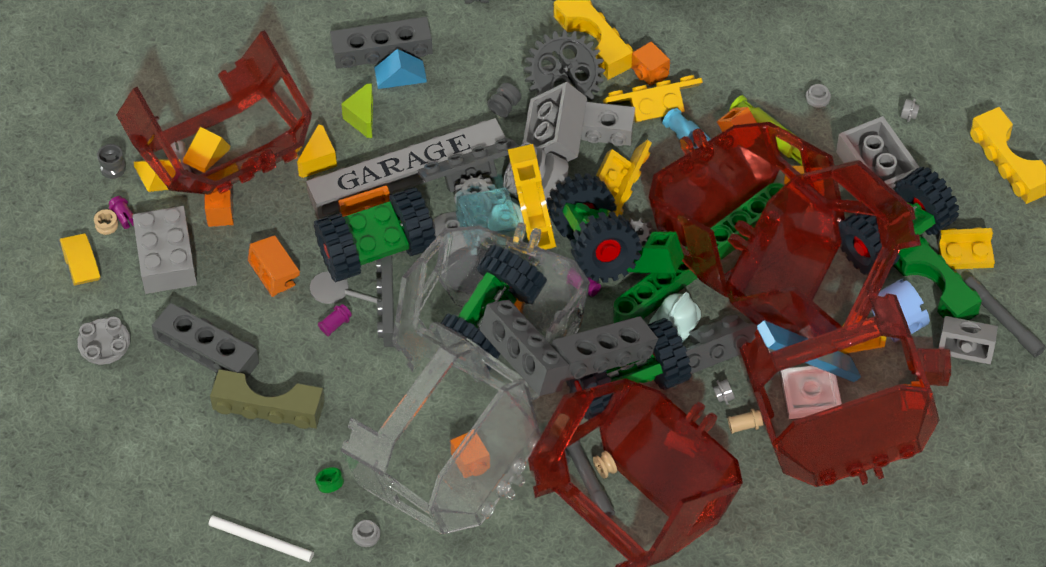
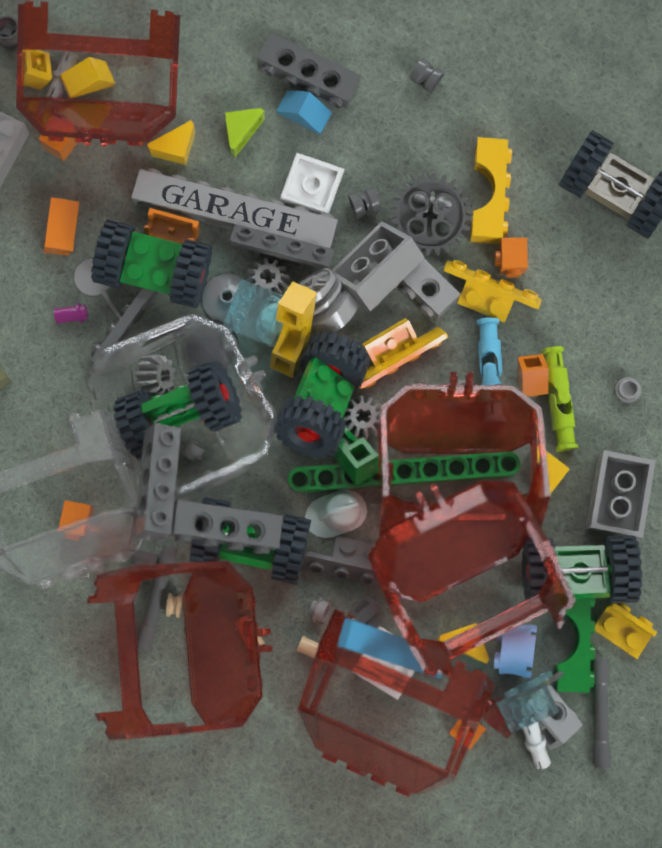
camera: 30 degrees right, 25 degrees up
(440, 305) = (155, 375): none -> light grey gear
(450, 112) = (311, 184): none -> white plate
(944, 327) = (529, 701): none -> clear light blue bracket
(974, 363) = (536, 745): none -> white pin

